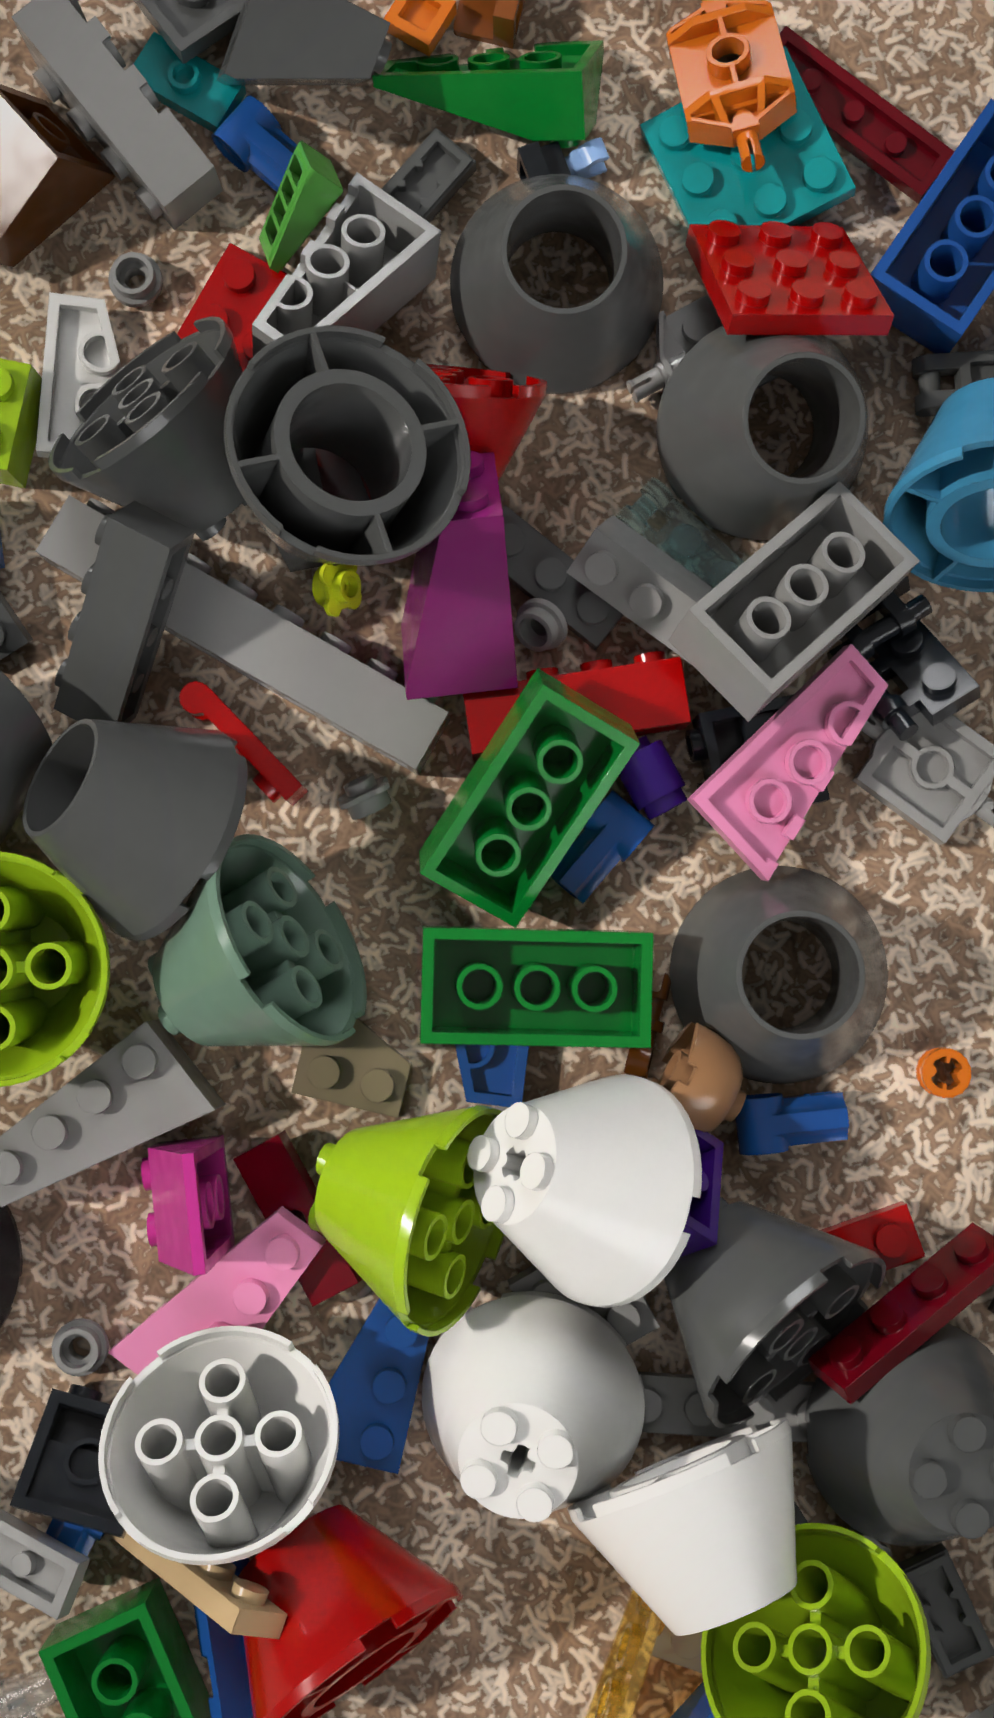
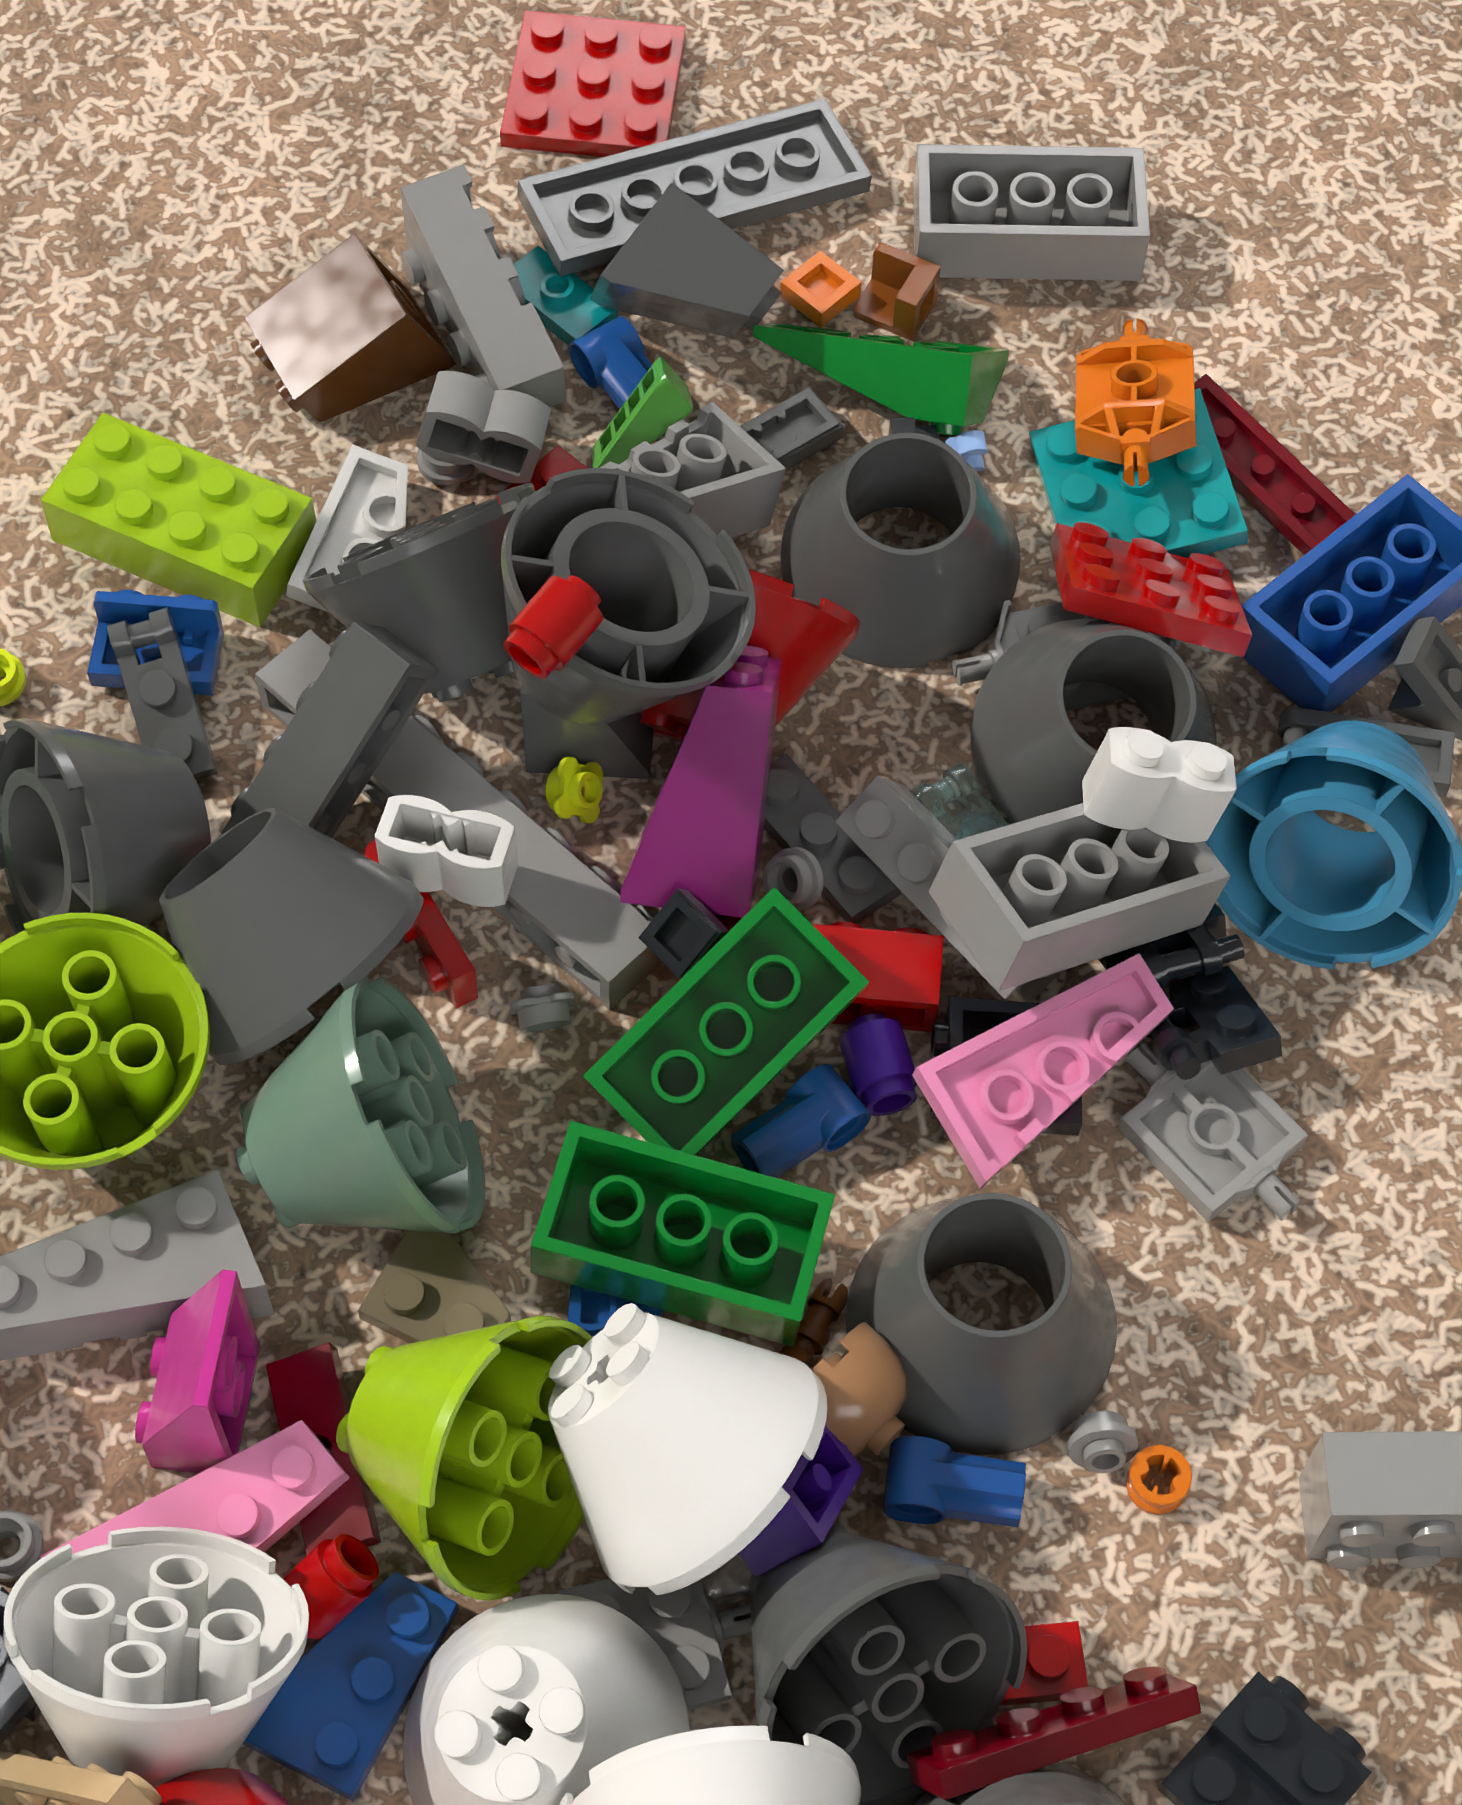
camera: 10 degrees right, 25 degrees down
(160, 249) = (483, 427): none -> light grey brick
(234, 699) = (456, 852): none -> white brick
(299, 533) = (553, 625): none -> red brick
(334, 1328) = (334, 1581): none -> red brick
(469, 718) = (682, 932): none -> black tile
(849, 498) = (1158, 784): none -> white brick
(896, 1057) = (1102, 1442): none -> light grey plate

